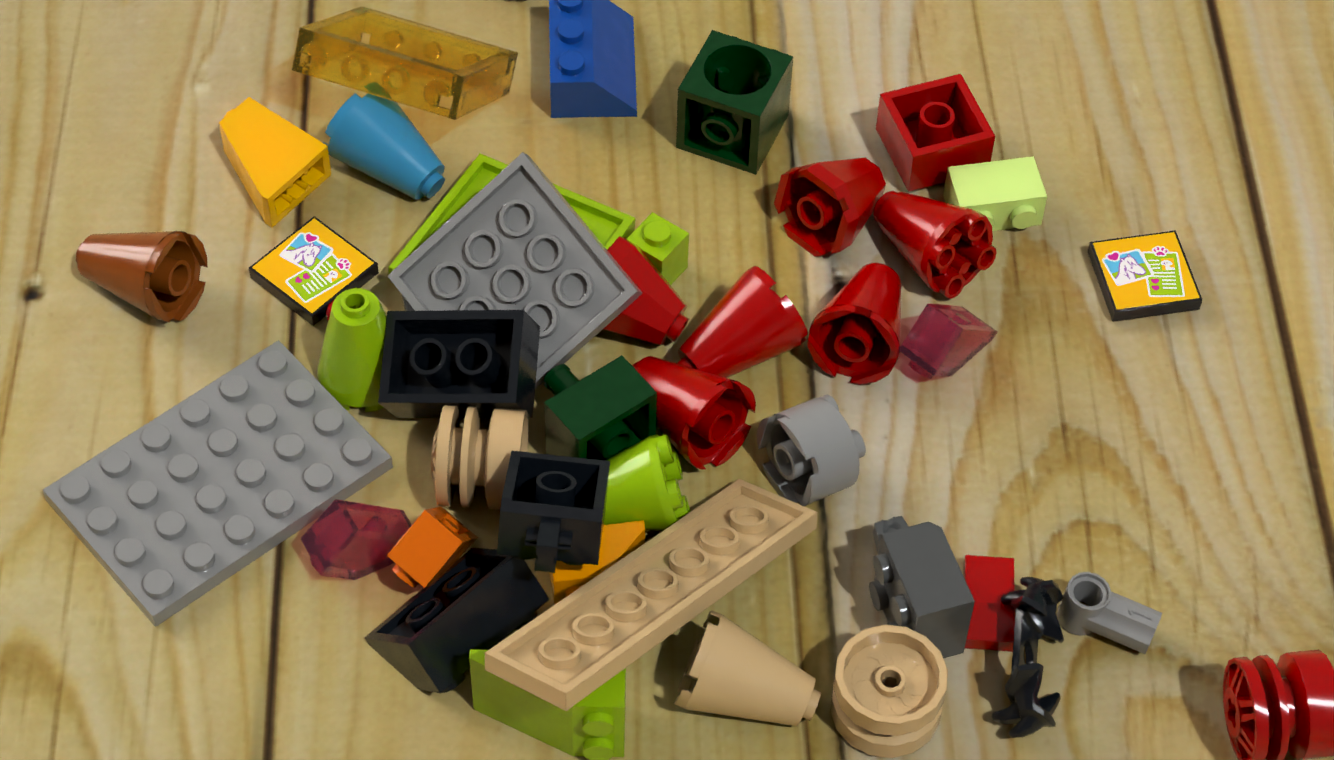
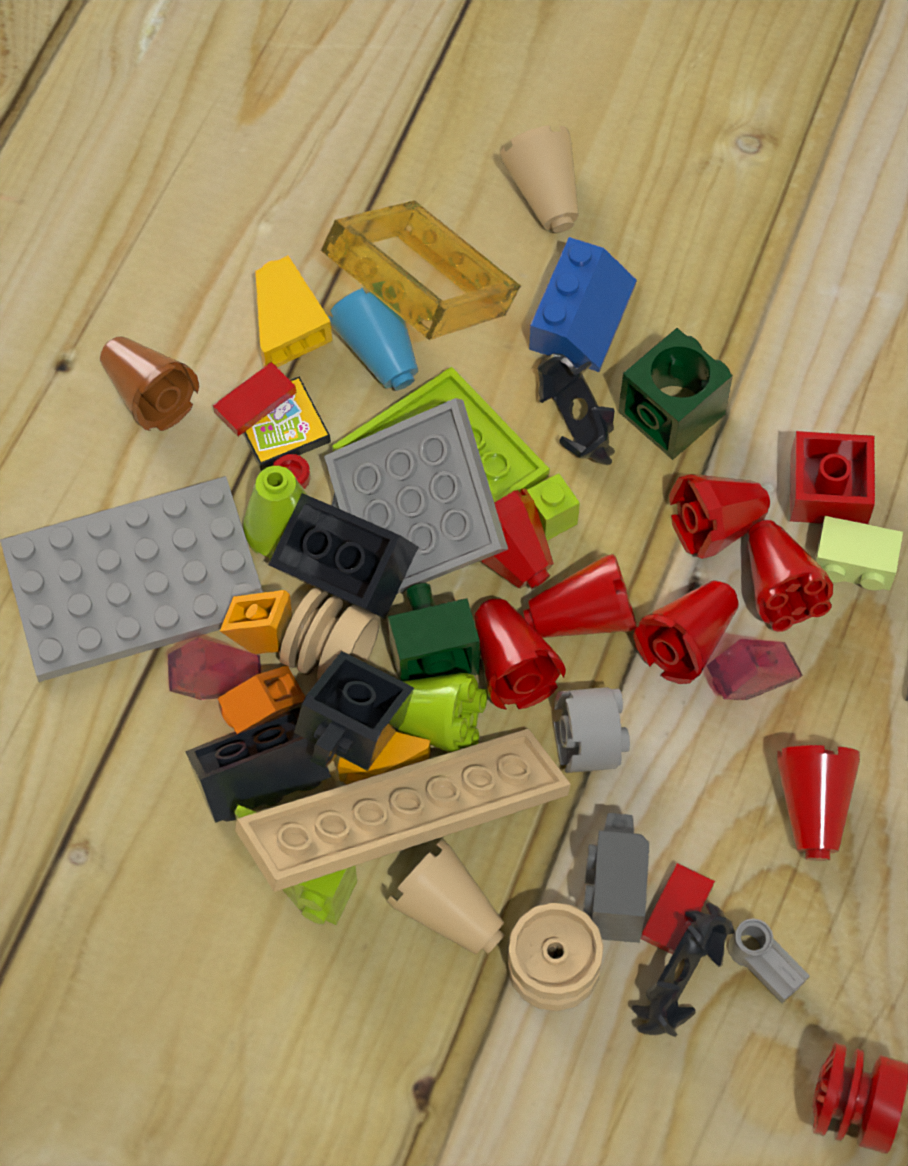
camera: 25 degrees right, 10 degrees up
(276, 251) = (254, 399): none -> red tile
(392, 465) = (258, 621): none -> light orange slope
(608, 131) = (564, 383): none -> black piece
(1078, 432) = (818, 795): none -> red cone

